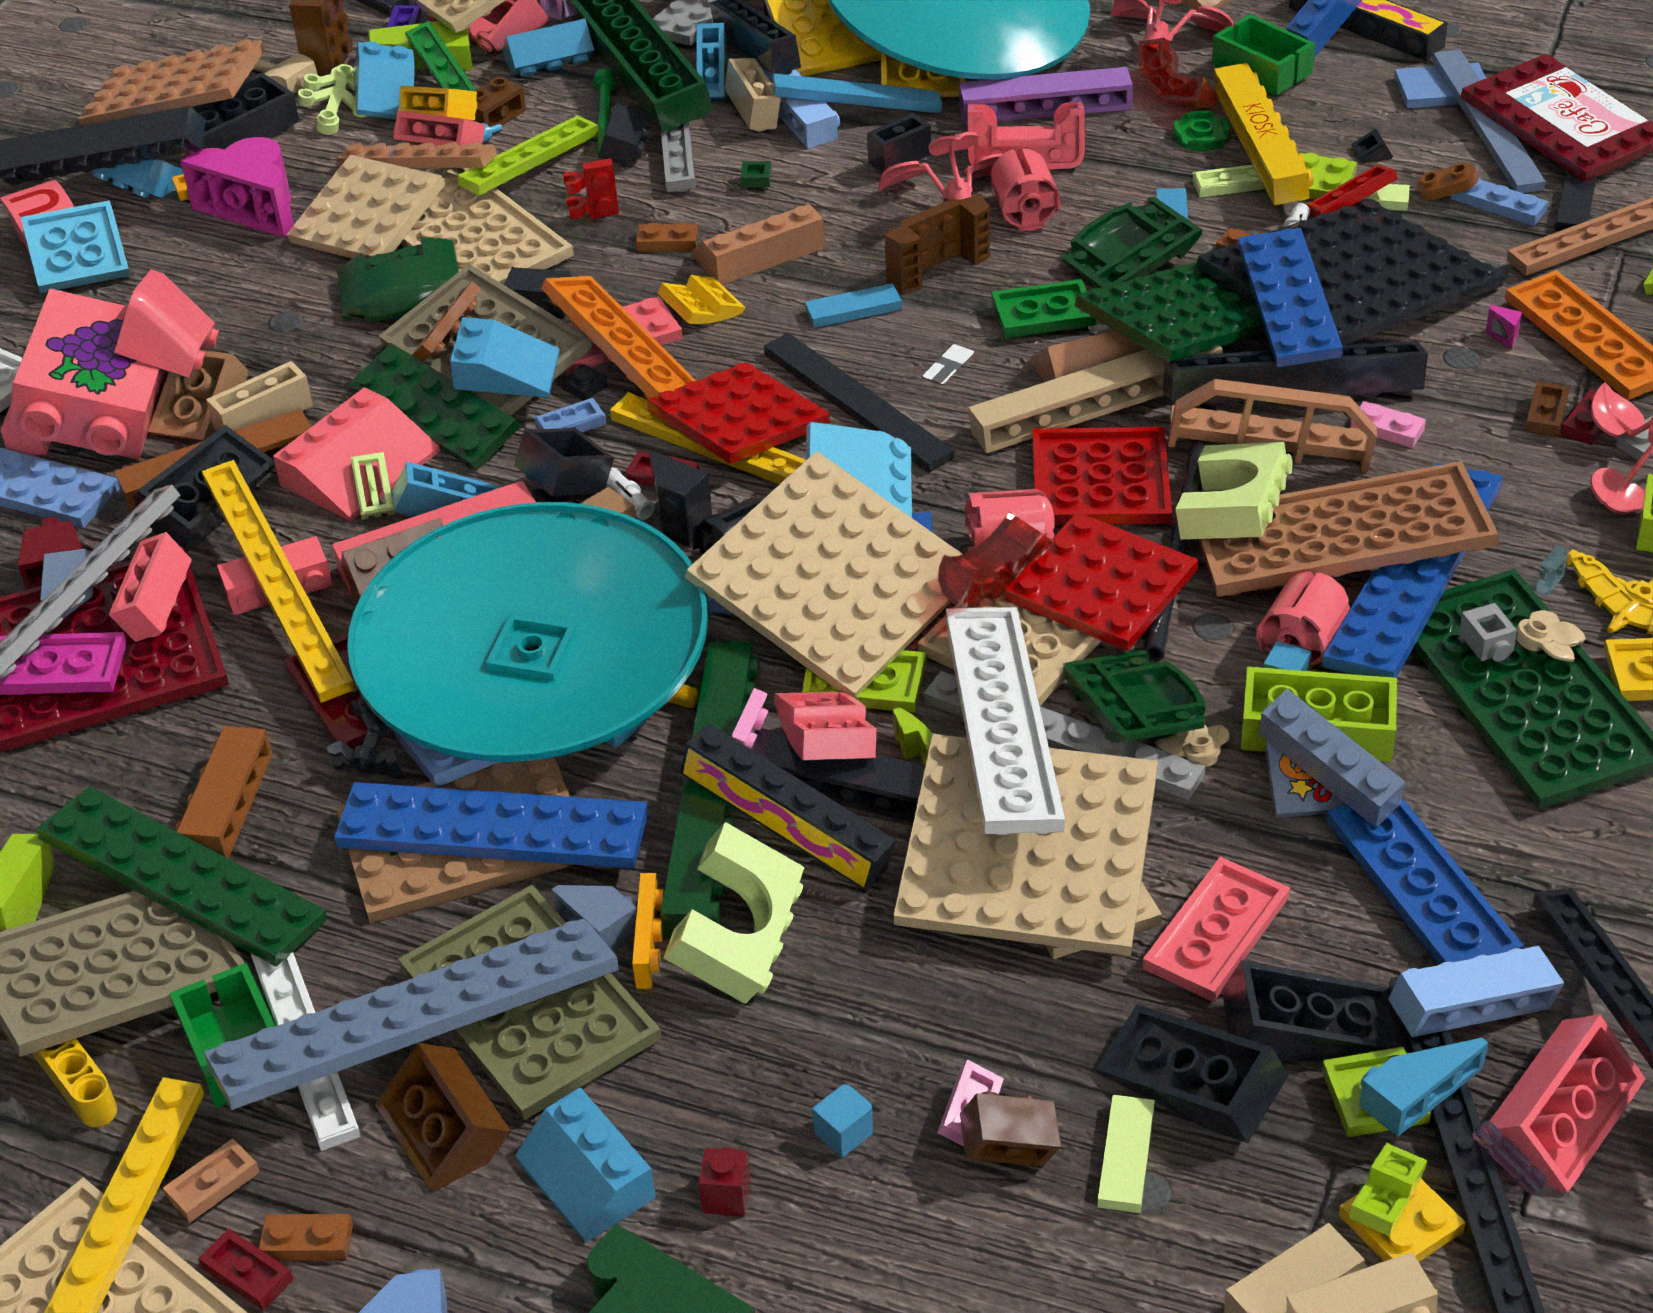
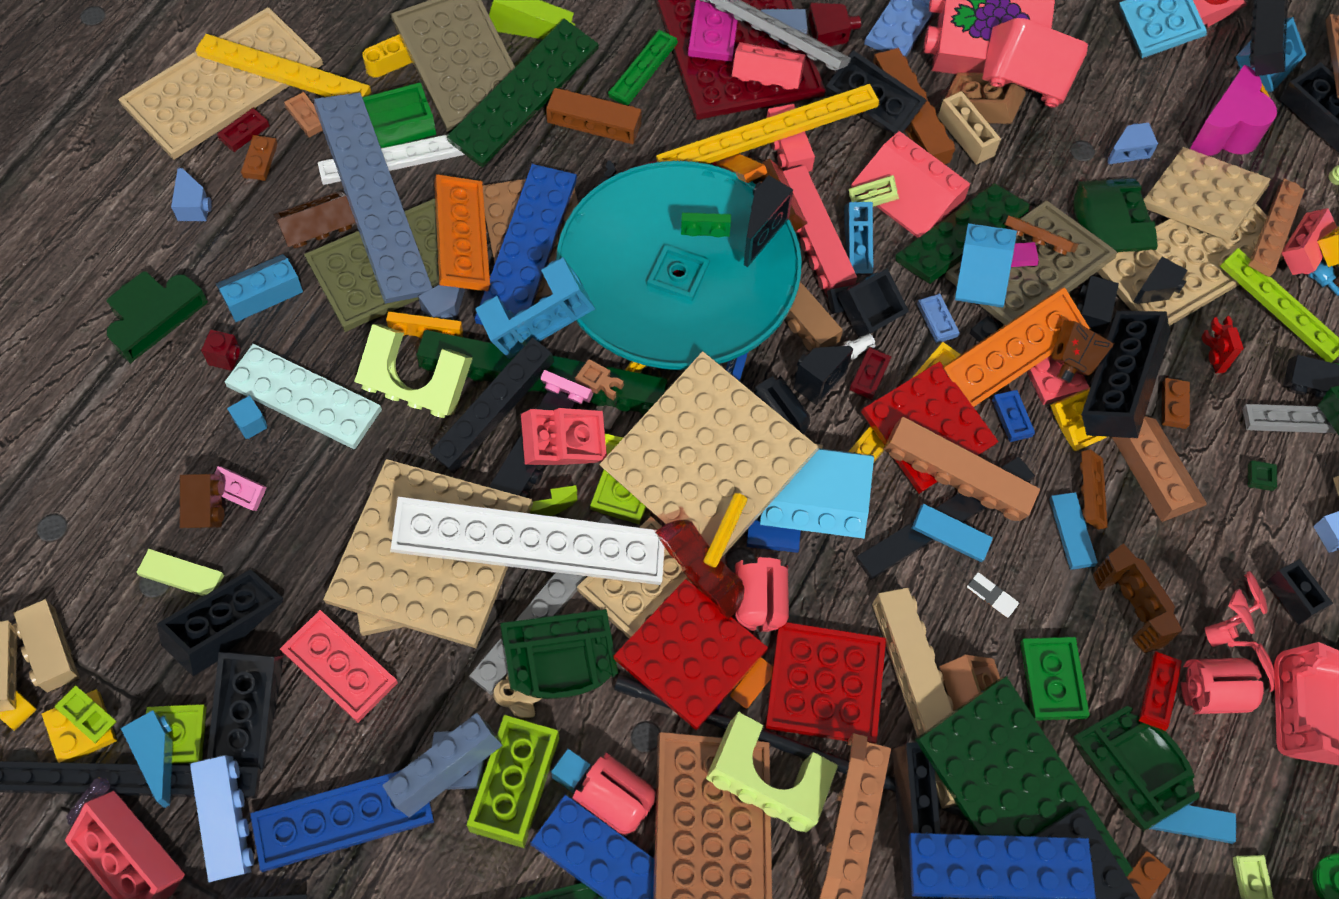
camera: 90 degrees right, 20 degrees up
(127, 748) = (643, 68): none -> green tile
(281, 271) = (1134, 144): none -> medium blue slope
(344, 594) = (743, 167): none -> orange tile
(472, 900) = (461, 233): none -> orange plate
(473, 520) = (768, 215): none -> black slope
(475, 596) = (705, 224): none -> green plate
(507, 234) = (1162, 282): none -> black slope
(623, 697) = (541, 320): none -> dark azure plate
(624, 283) = (1078, 350): none -> reddish brown torso
(651, 247) = (1126, 374): none -> black brick
(708, 352) = (1013, 416): none -> blue plate
(727, 700) = (598, 377): none -> nougat plate
(788, 1067) = (303, 396): none -> light aqua plate
(798, 288) = (1093, 489): none -> dark orange plate
(802, 372) = (961, 469): none -> nougat brick
(881, 387) = (952, 533): none -> dark azure tile
(943, 533) = (725, 530): none -> yellow axle
(1037, 234) = (1160, 691): none -> red tile

